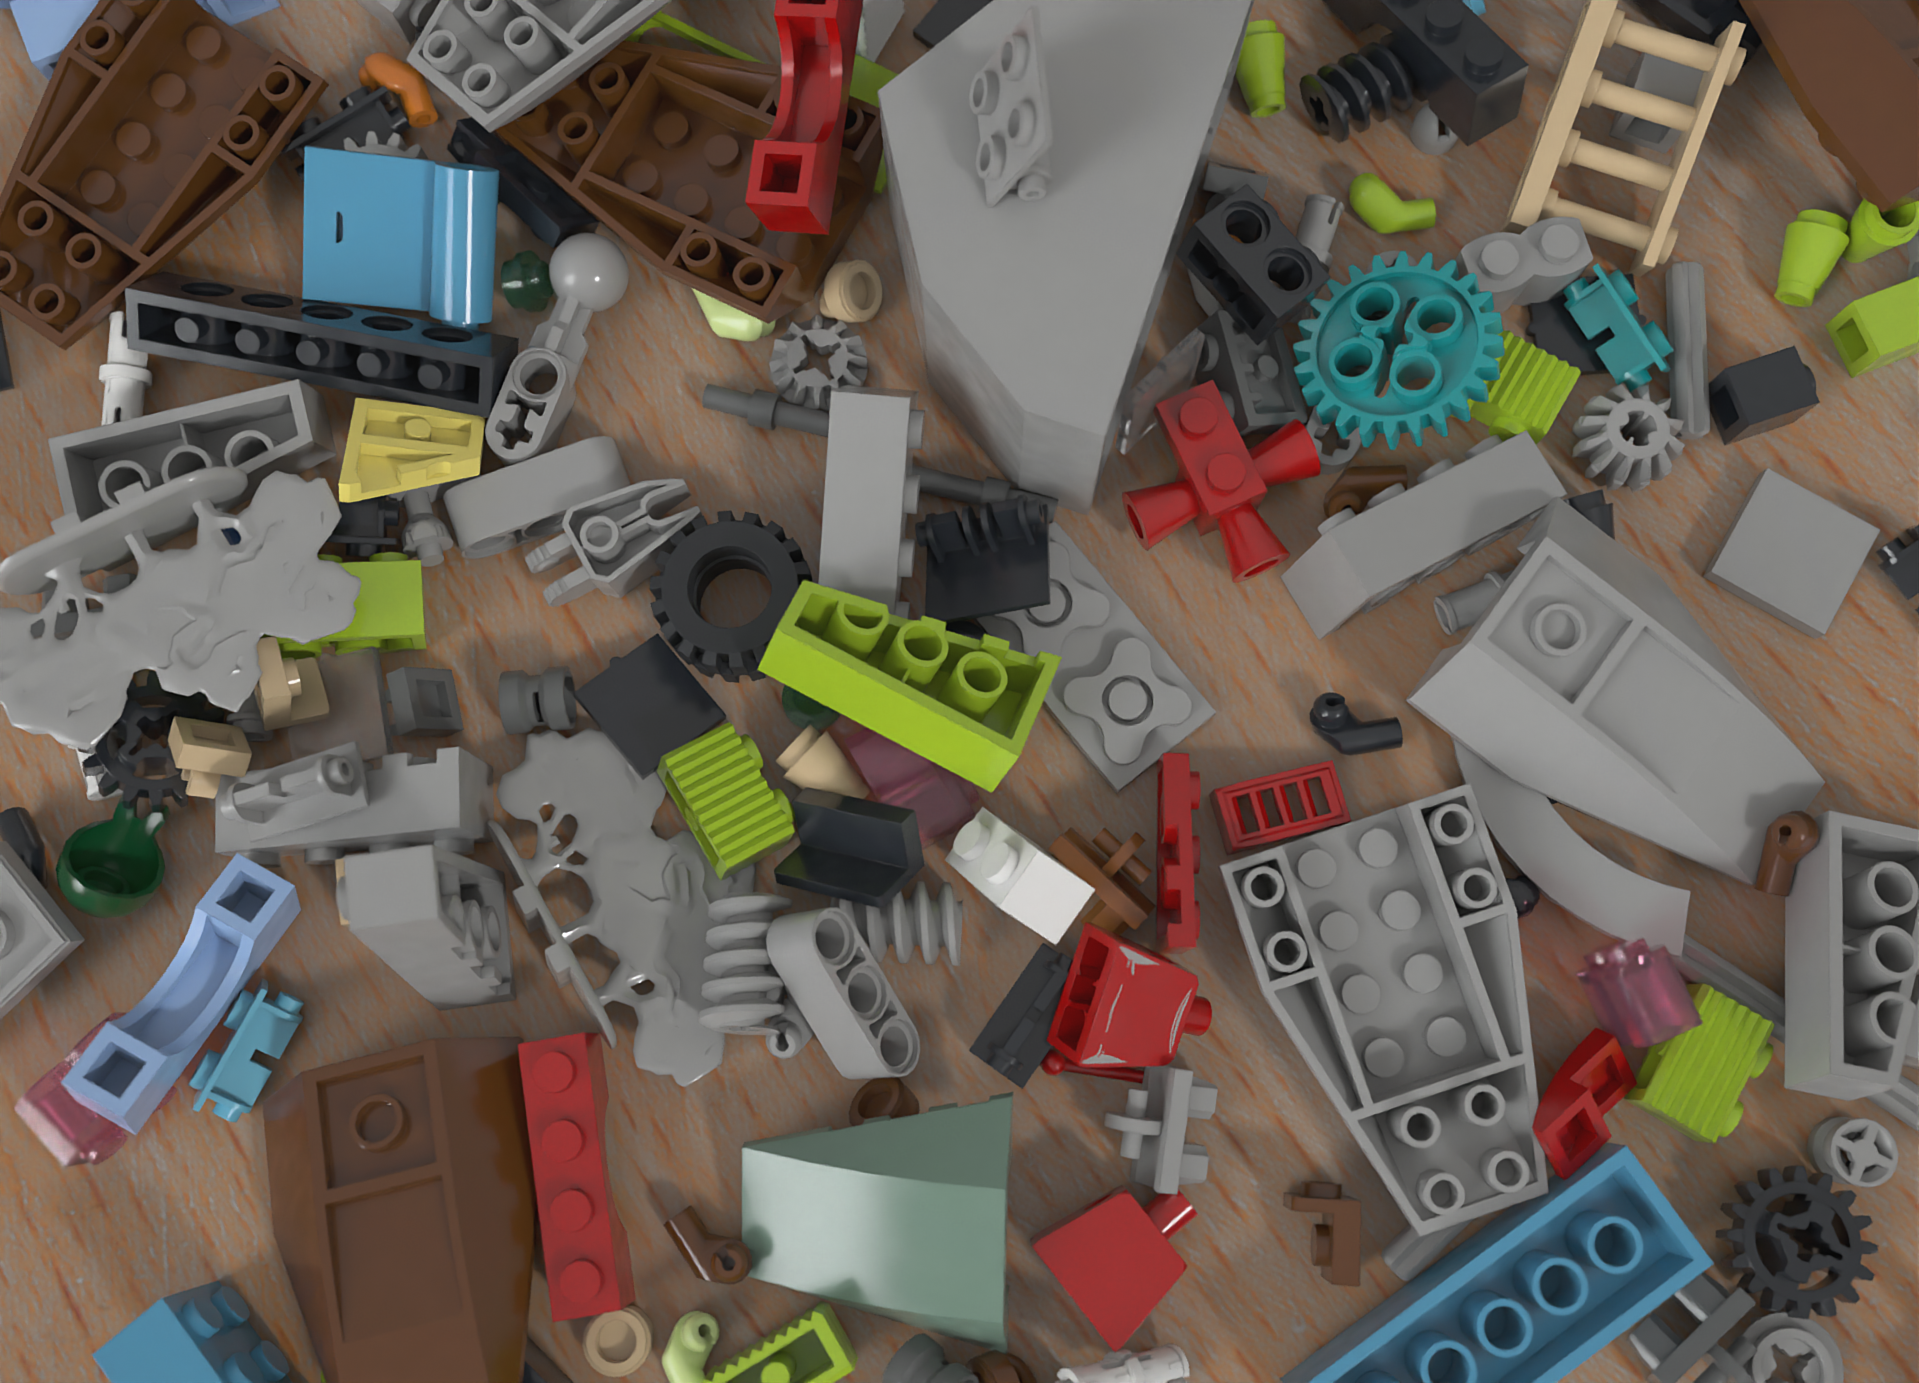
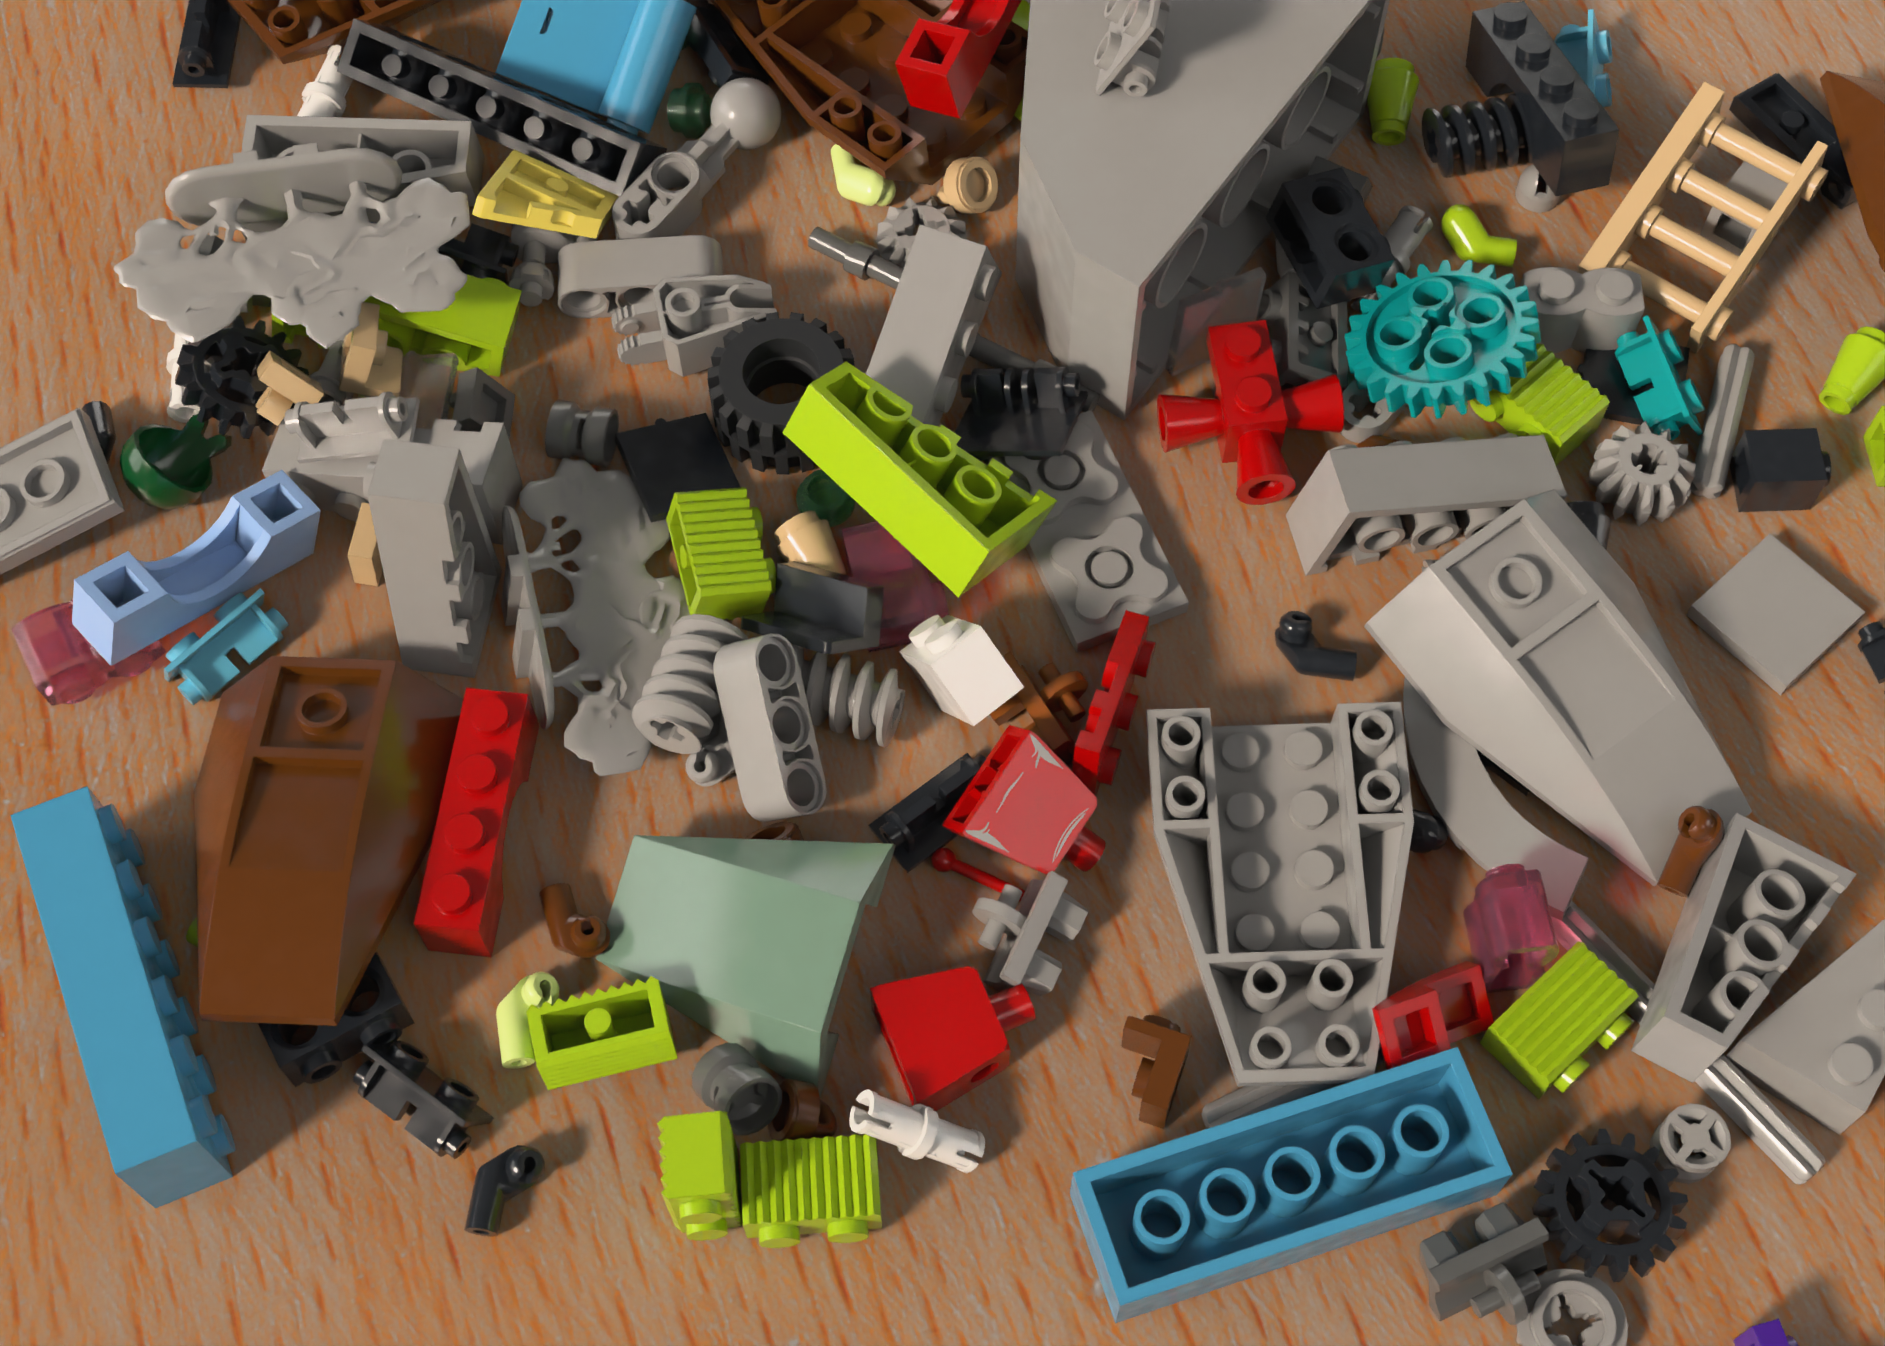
camera: 15 degrees right, 15 degrees down
(618, 1341) = (464, 982): tan tile -> none
(1231, 822) = (1205, 675): red slope -> none

